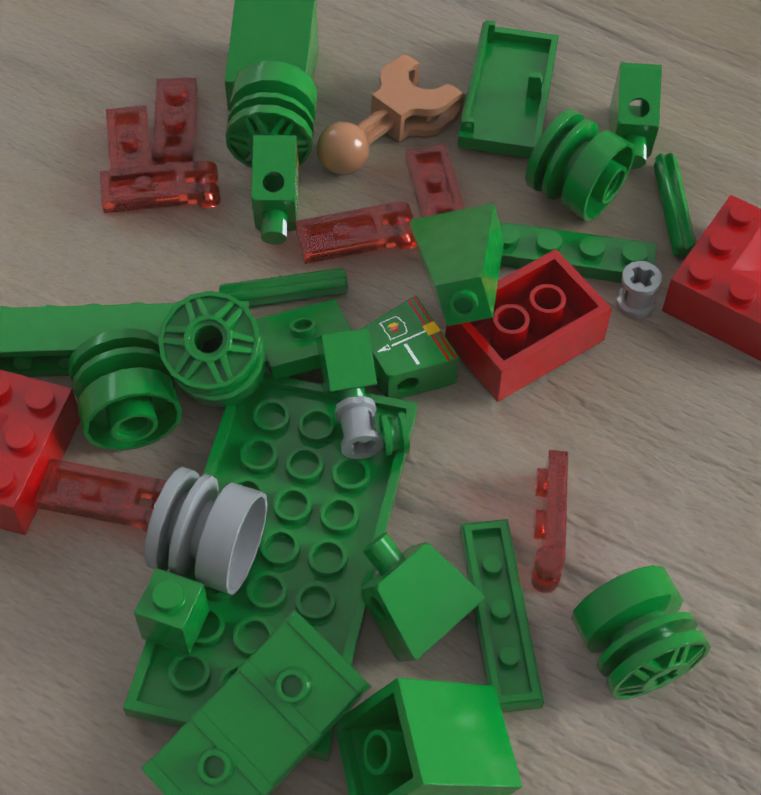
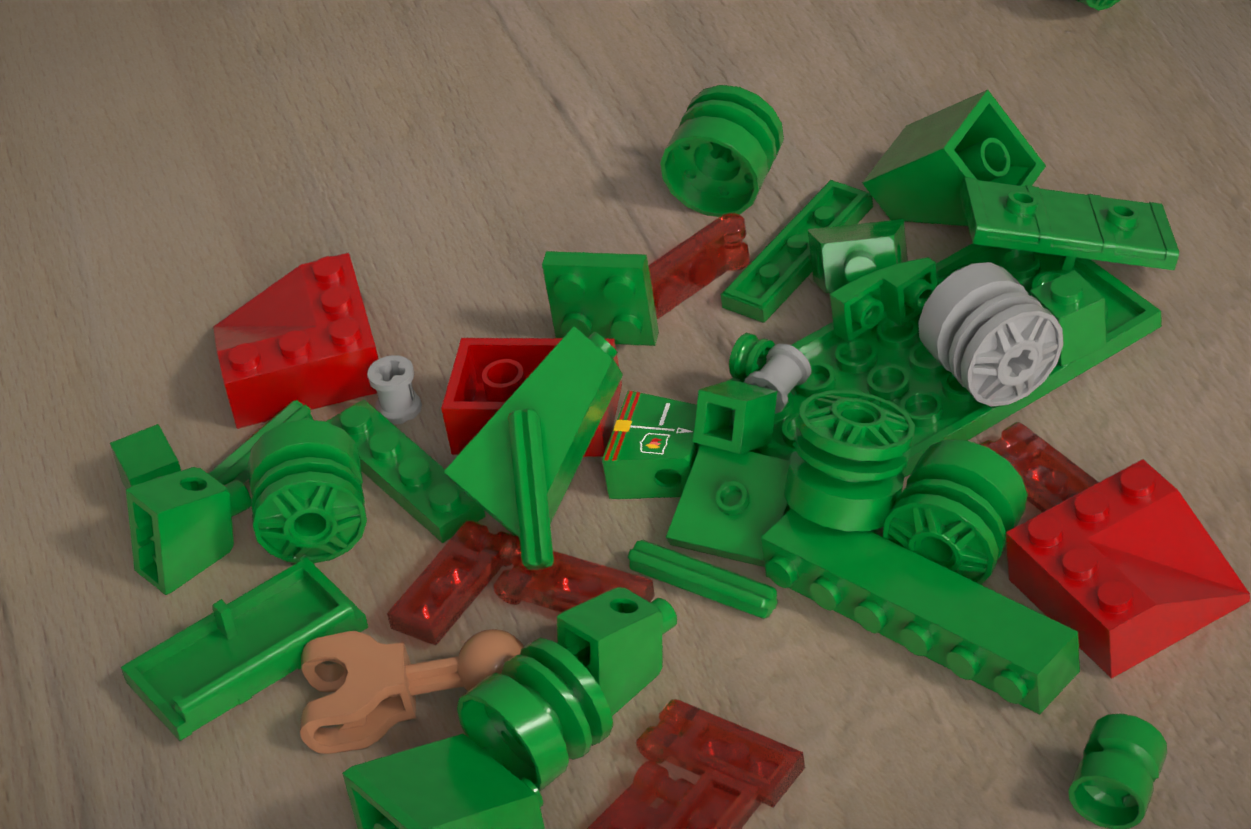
camera: 130 degrees left, 15 degrees down
(342, 553) = (887, 293): none -> green slope
(422, 221) = (530, 489): none -> green axle
(568, 419) = (601, 296): none -> green plate
(713, 147) = (144, 456): none -> green brick

